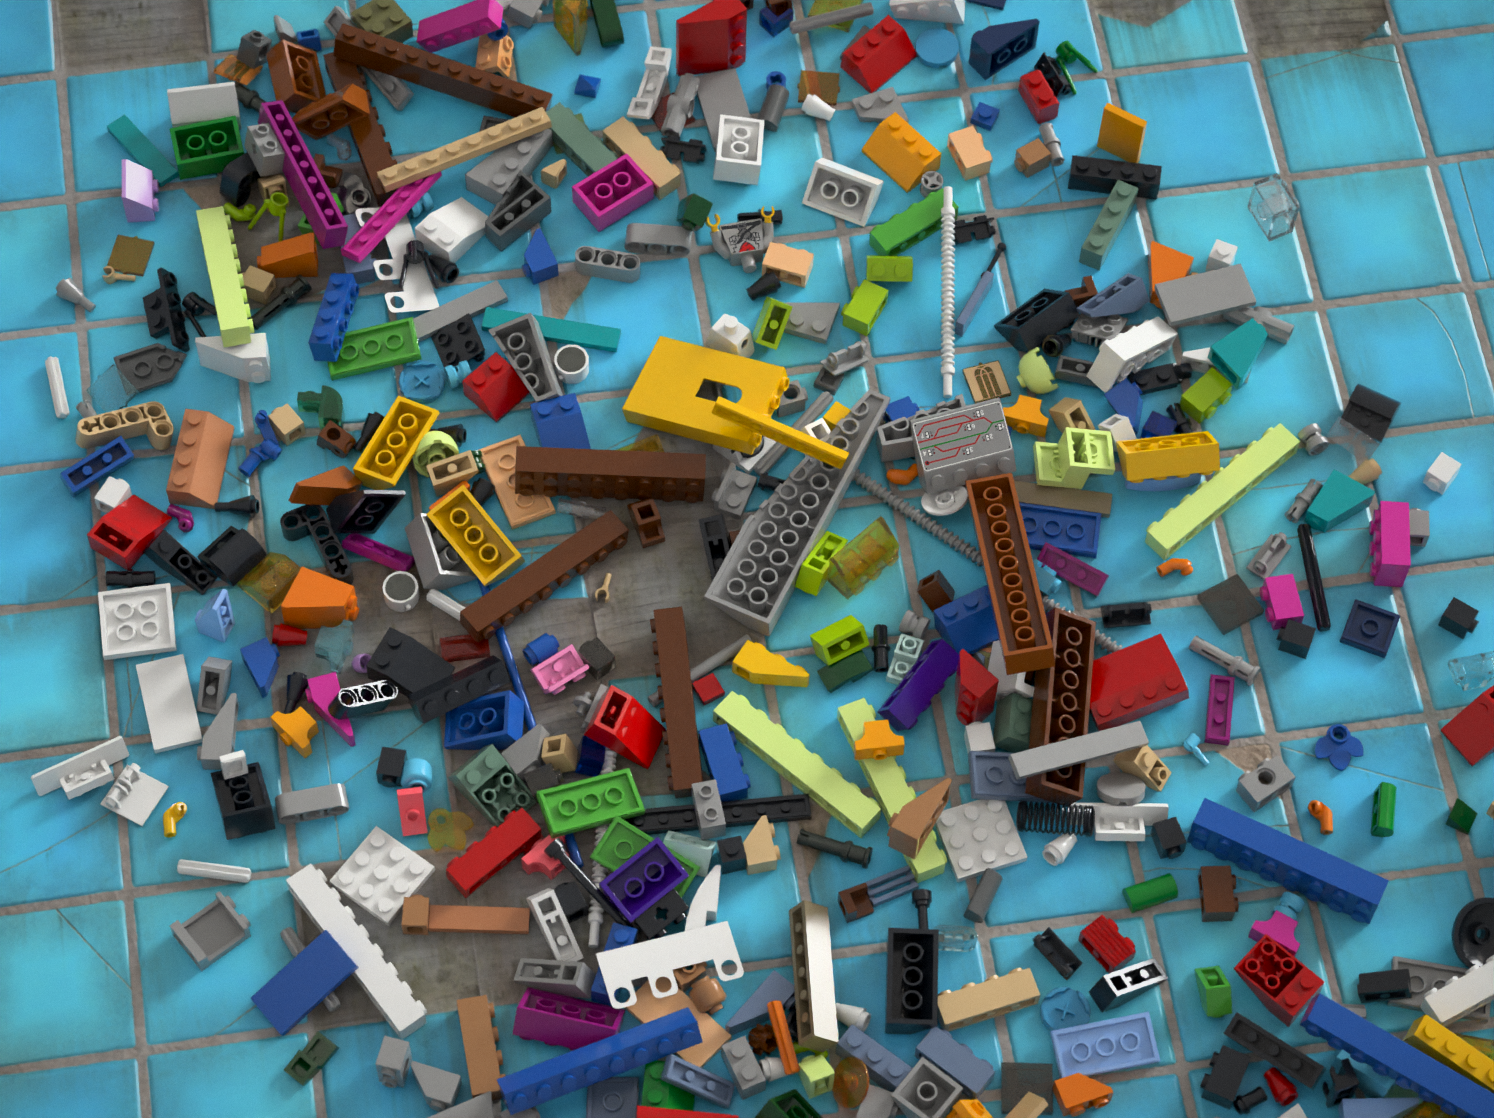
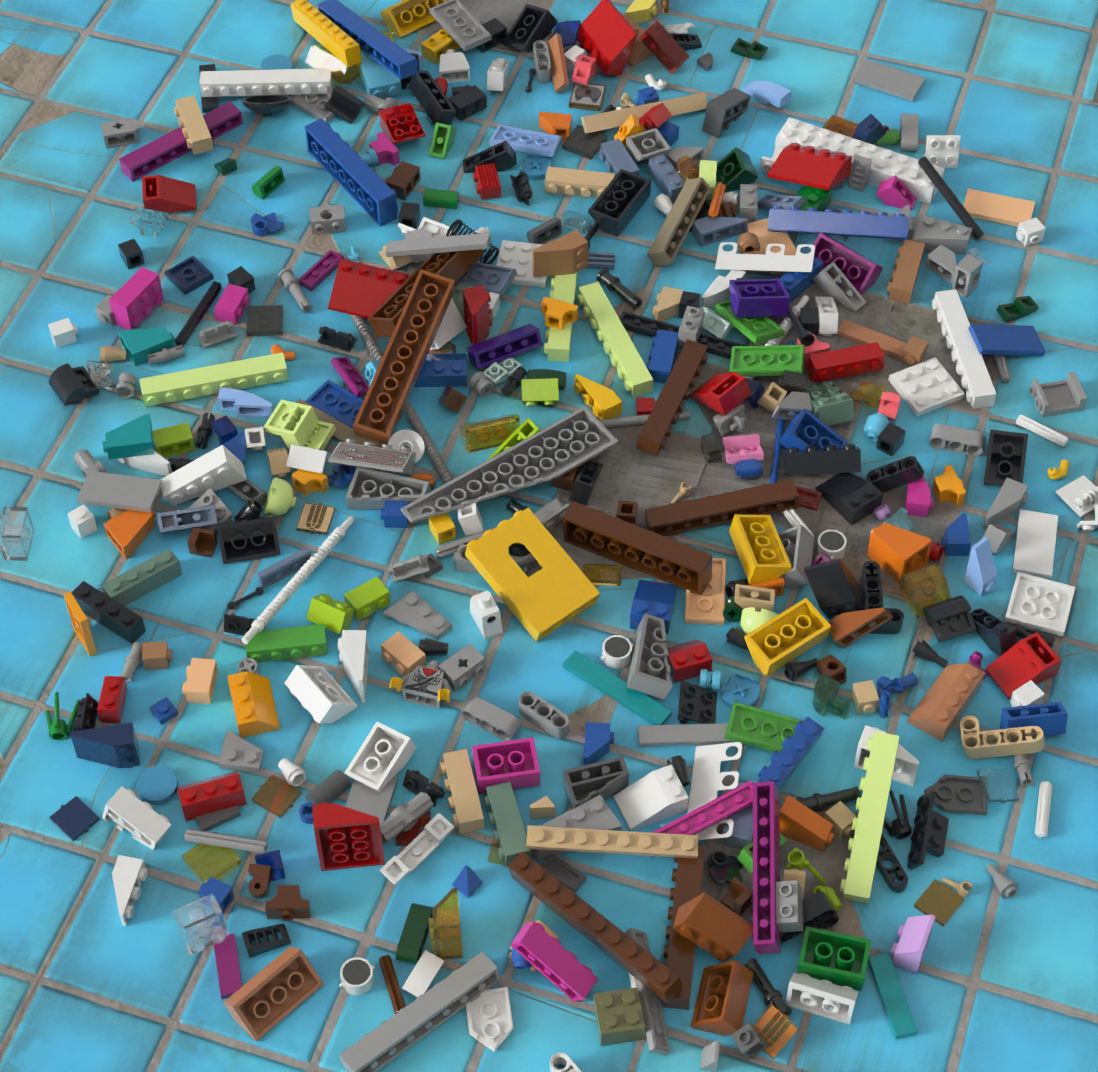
camera: 150 degrees left, 10 degrees down
(190, 258) = (888, 873): none -> black beam
(233, 764) = (1003, 473): white tile -> none
(295, 689) = (936, 515): black cone -> none
(309, 39) = (691, 1041): blue slope -> none
(415, 254) = (697, 782): black plant -> none
(693, 212) = (453, 715): dark green slope -> none
(719, 277) = (463, 667): none -> light grey brick
(771, 323) = (448, 604): lime brick -> none
(777, 218) = (399, 702): black axle -> none
(780, 432) = (503, 498): yellow tile -> none
(826, 225) = (355, 658): none -> white slope
(855, 902) = (626, 260): reddish brown panel -> none
(1036, 423) = (307, 459): none -> white panel
(1168, 456) = (236, 397): yellow slope -> none
(1323, 814) = (305, 196): orange arm -> none

